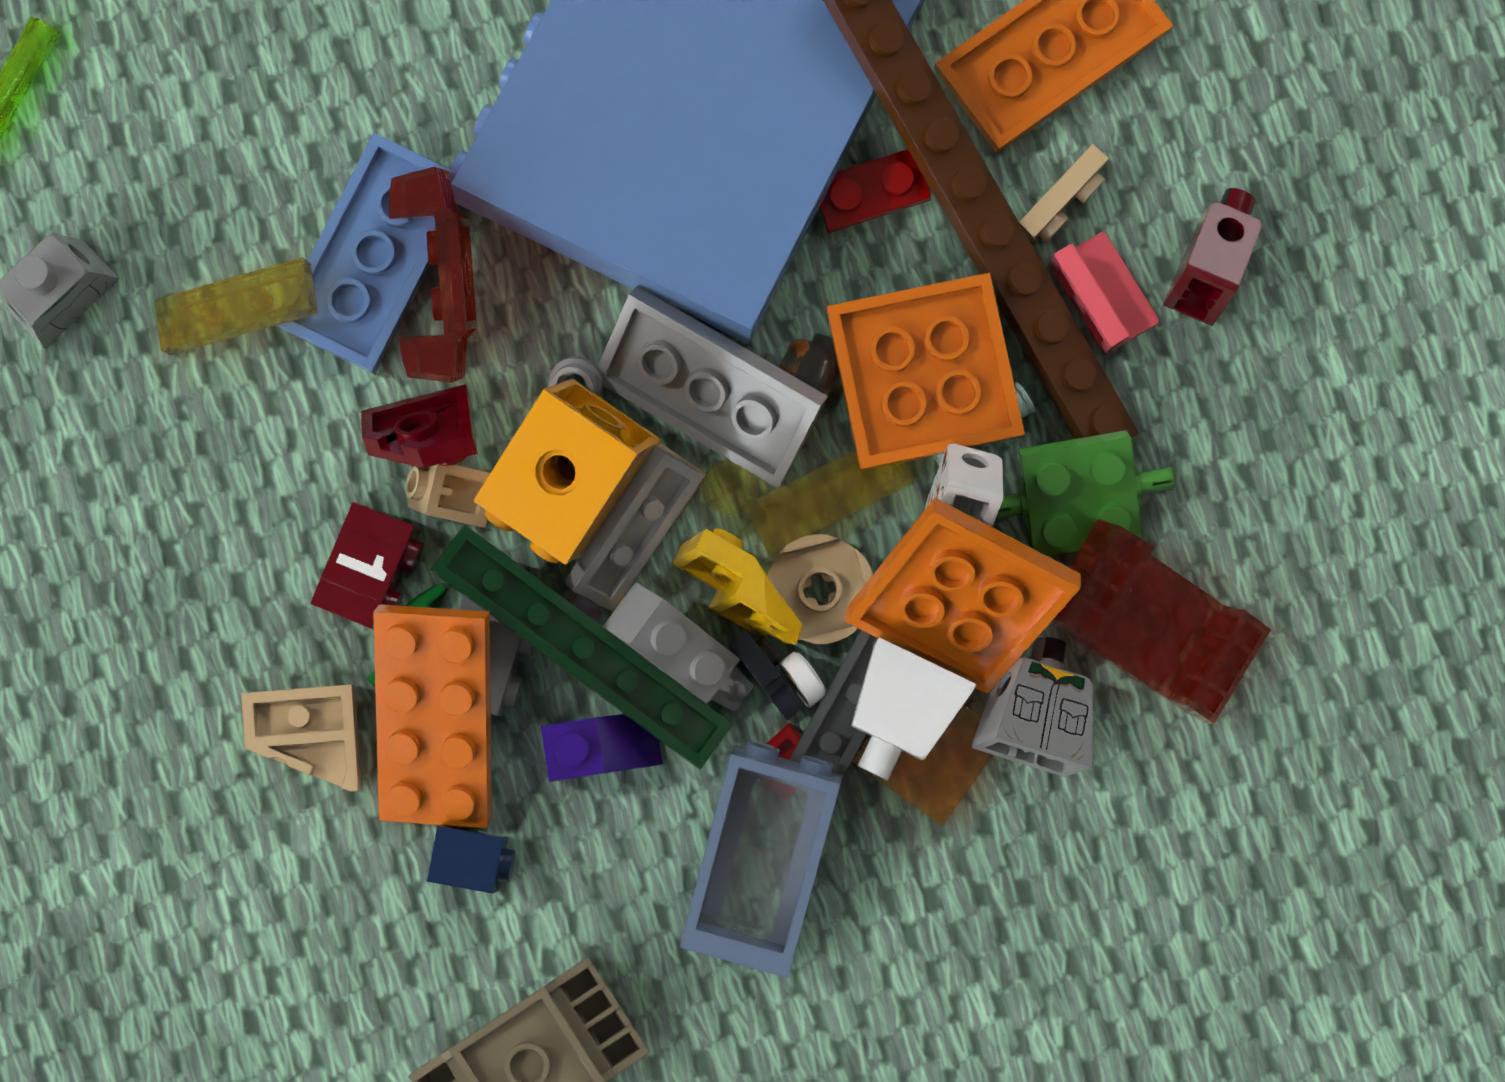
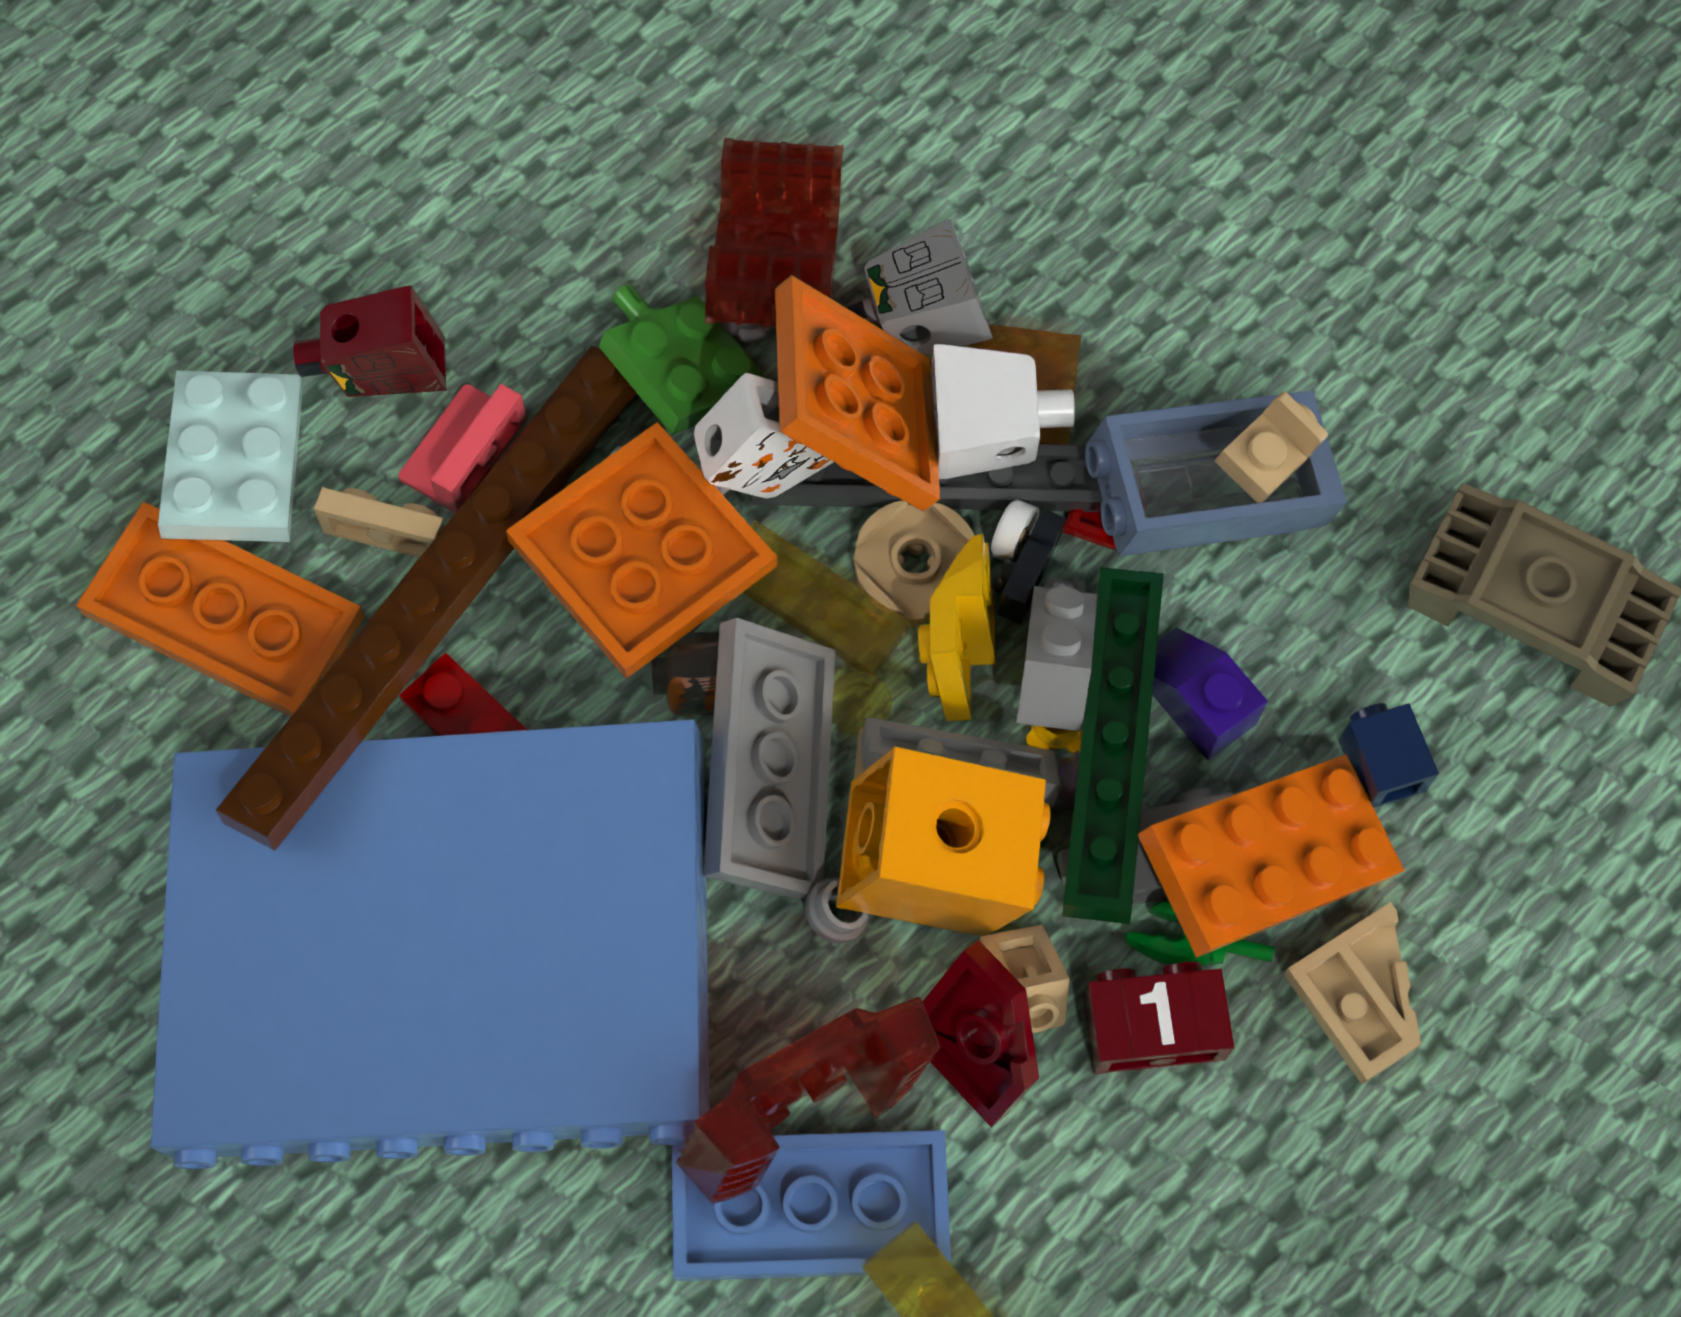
camera: 125 degrees left, 15 degrees down
(748, 905) = (1272, 447): none -> tan bracket
(1180, 108) = (231, 456): none -> light aqua plate

